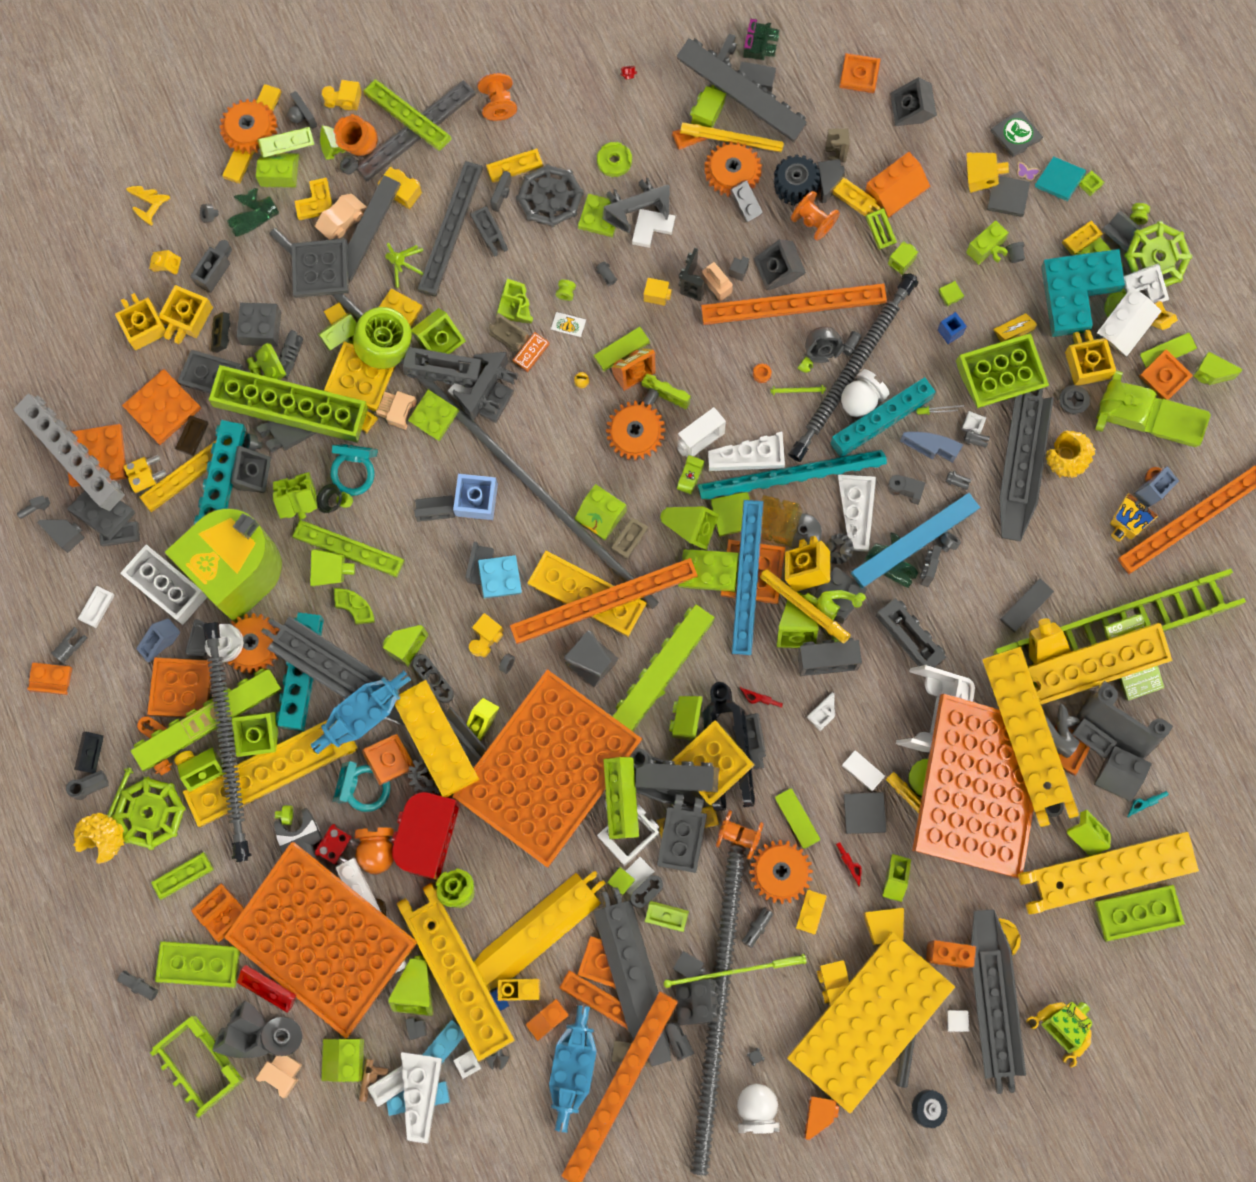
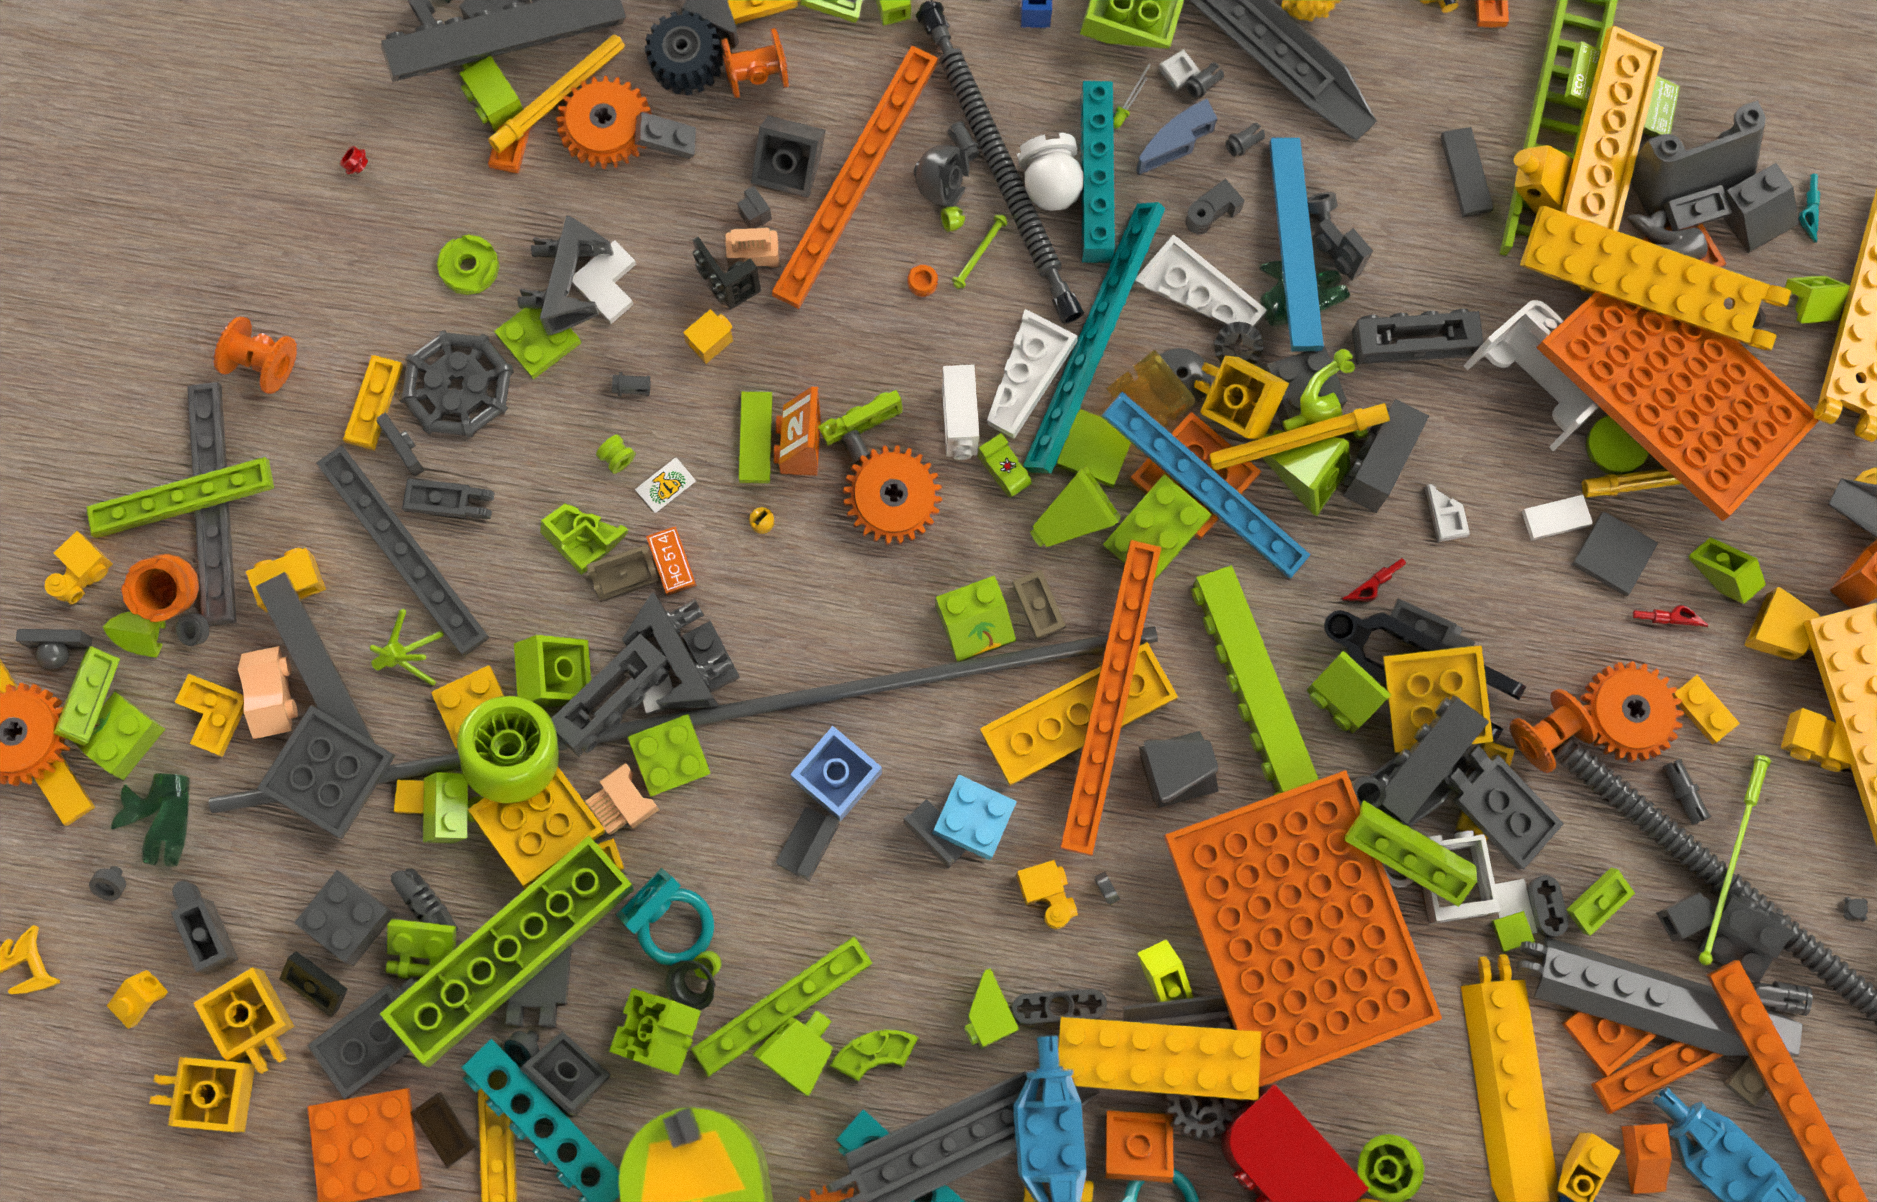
camera: 65 degrees left, 0 degrees up
(797, 818) = (1569, 643): lime piece -> none

